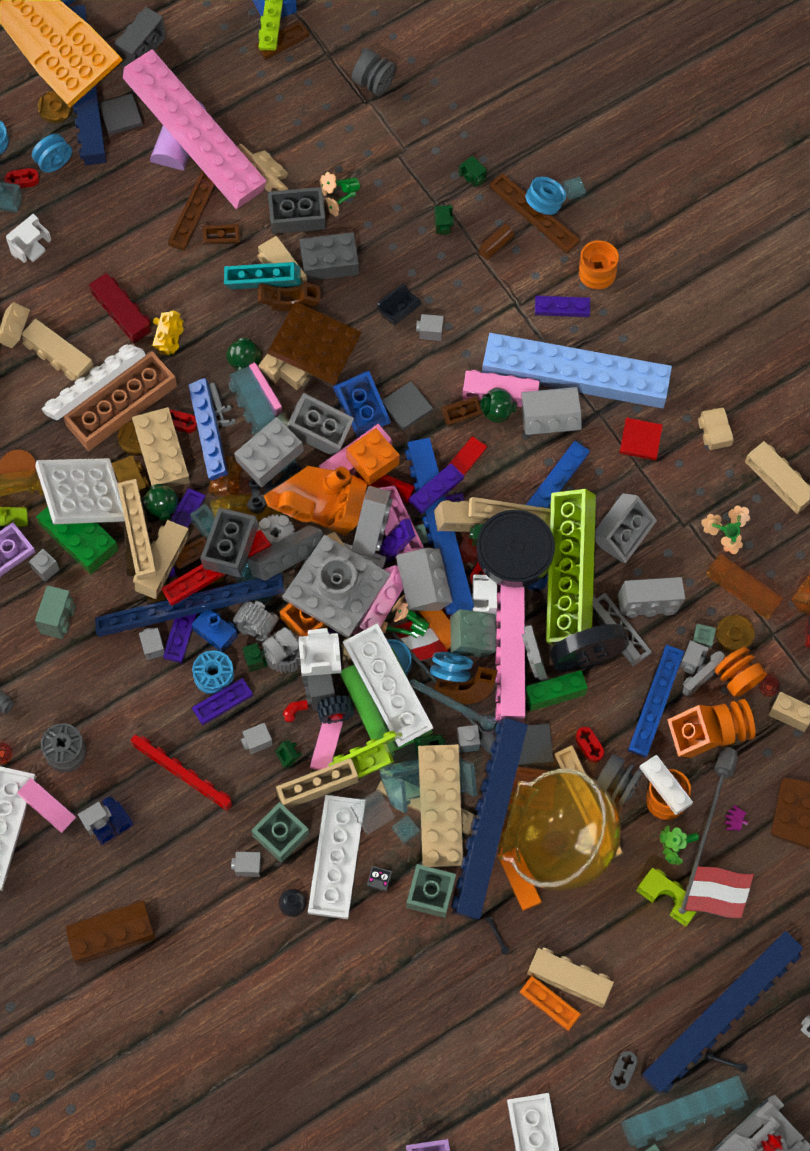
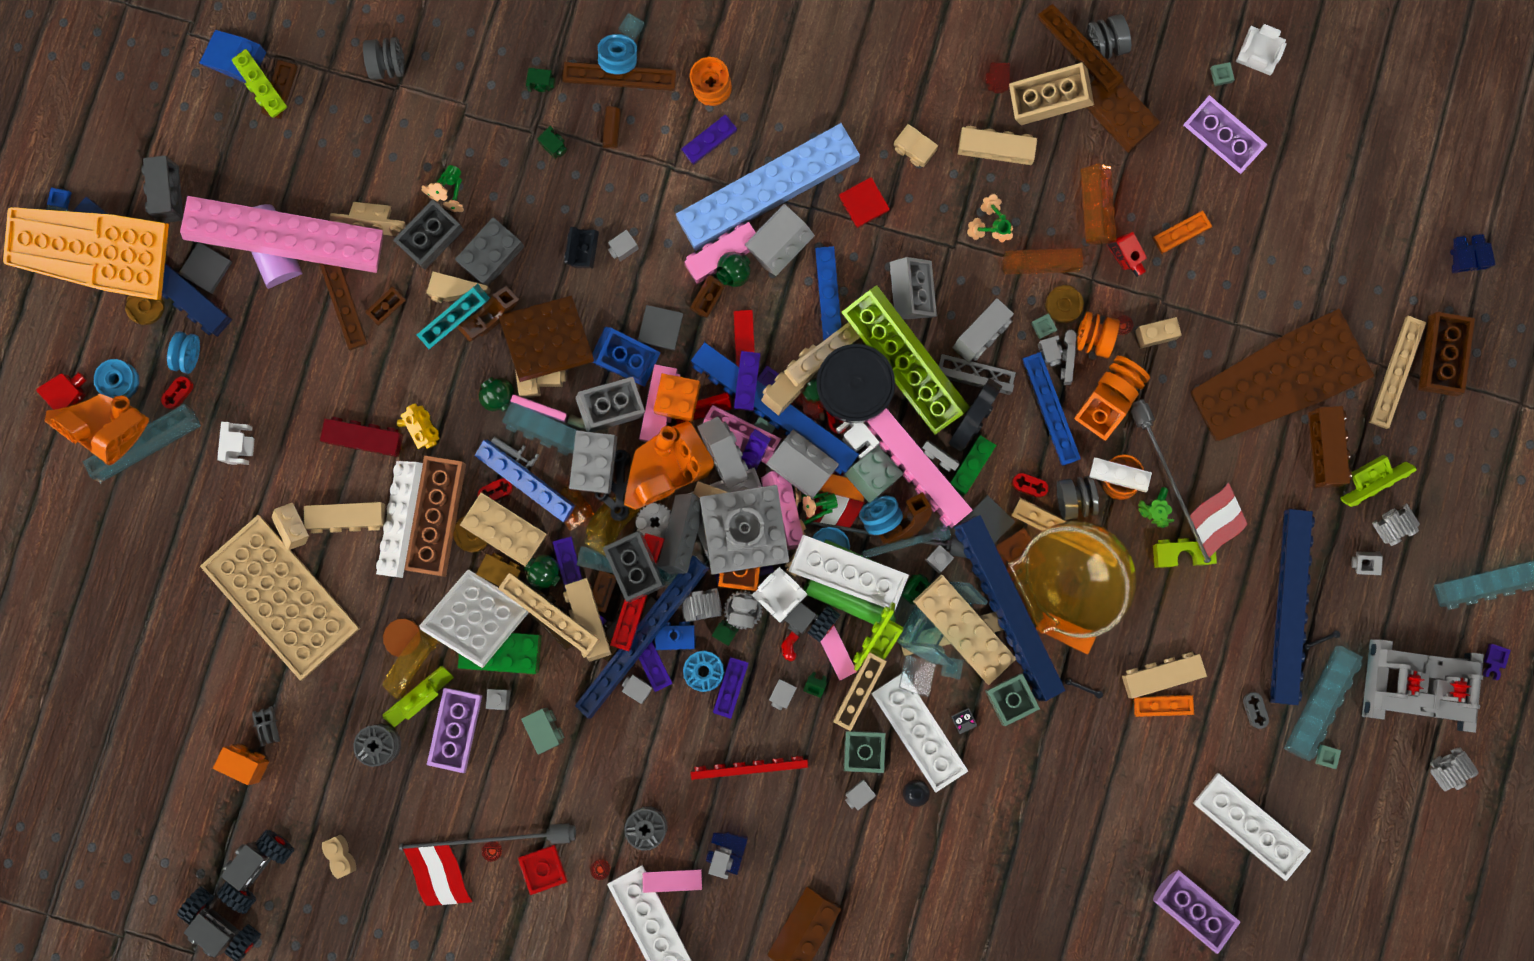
camera: 35 degrees left, 15 degrees up
(736, 819) = (1183, 451): magenta piece -> none

